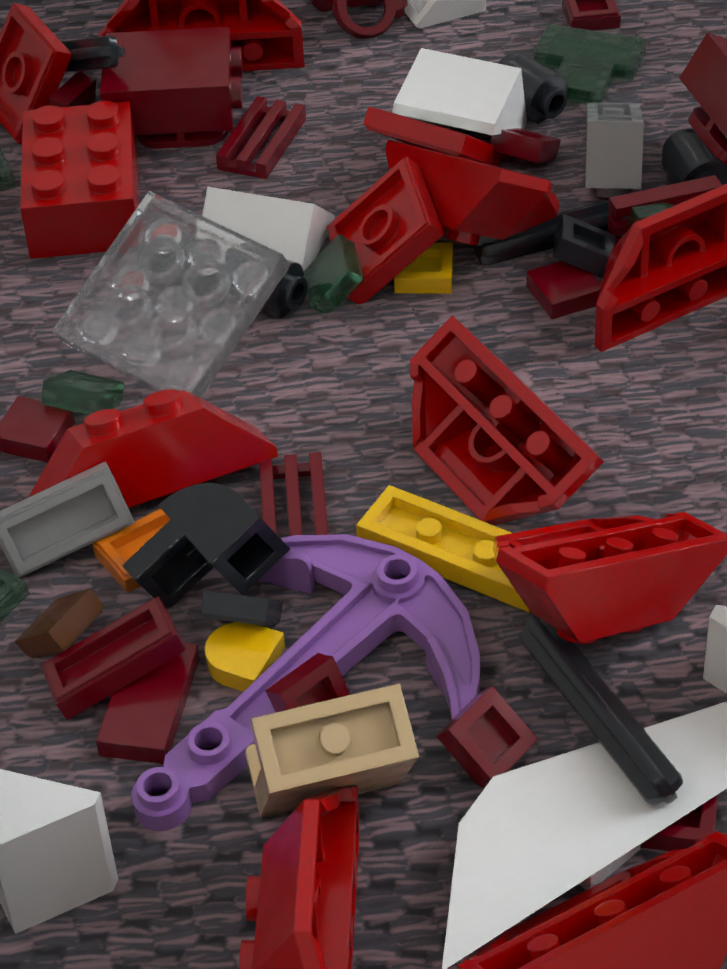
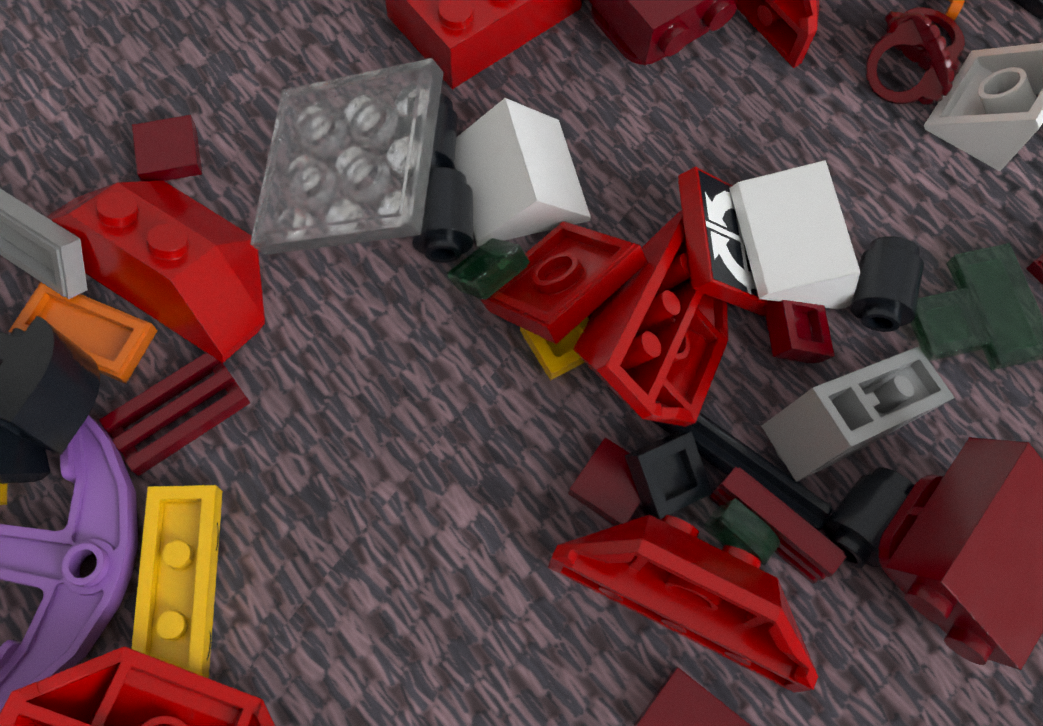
camera: 50 degrees right, 25 degrees up
(82, 392) = (218, 160): clear green tile -> none
(253, 133) = (659, 84): dark red tile -> none
(491, 432) = (332, 559): red wedge -> none

